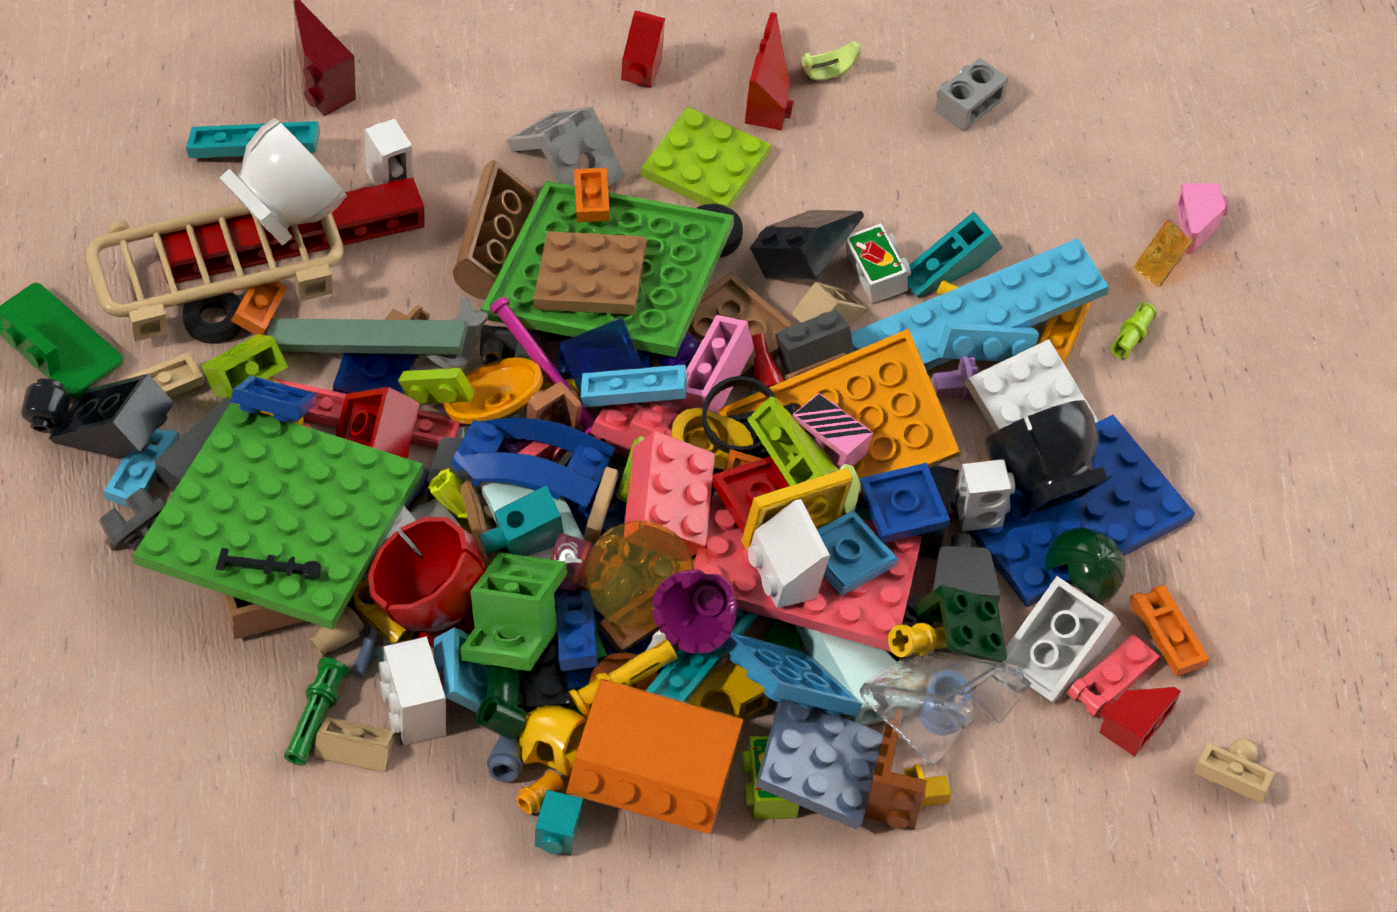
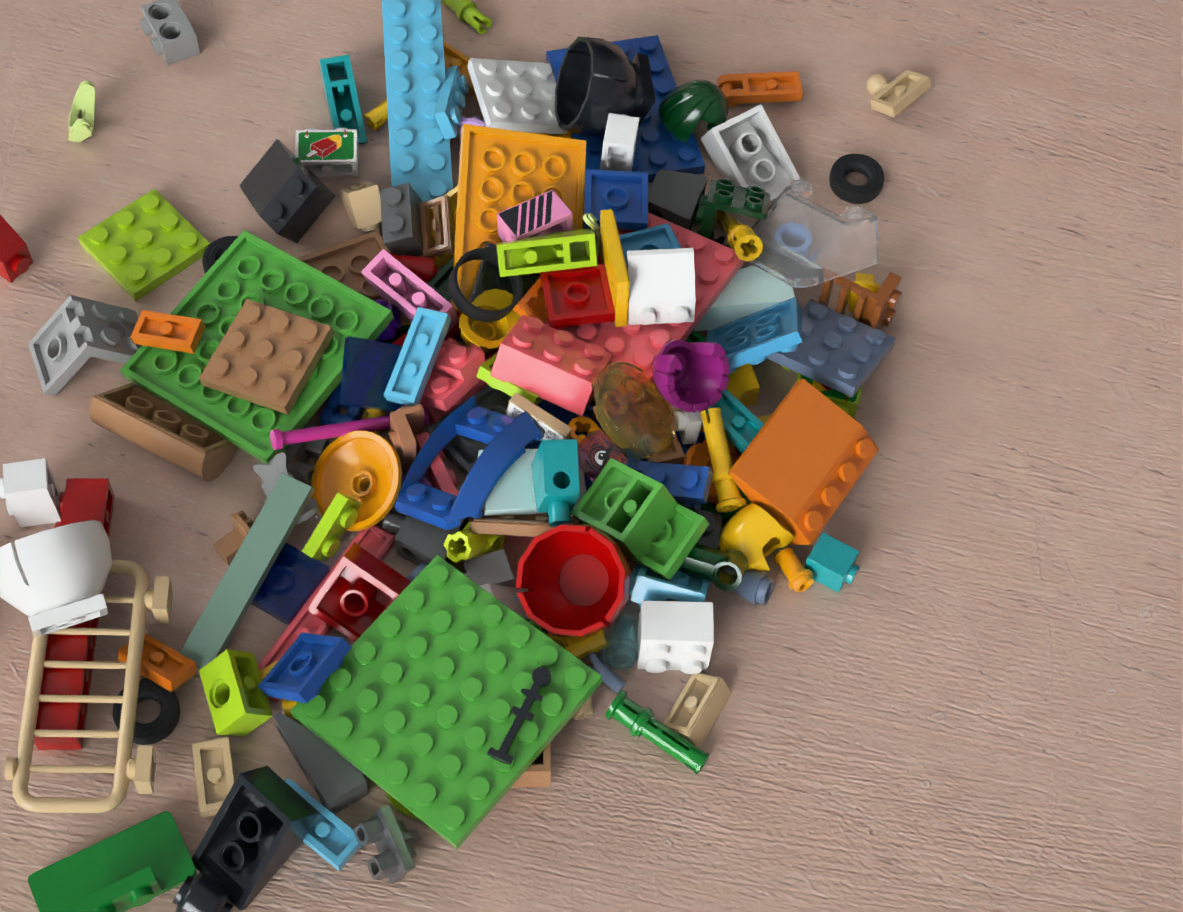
camera: 70 degrees left, 5 degrees up
(769, 82) = (82, 165): red wedge -> none
(1086, 774) = (856, 193): none -> black tyre
(1114, 675) = (793, 138): coral plate -> none
(1137, 716) = (838, 132): red slope -> none

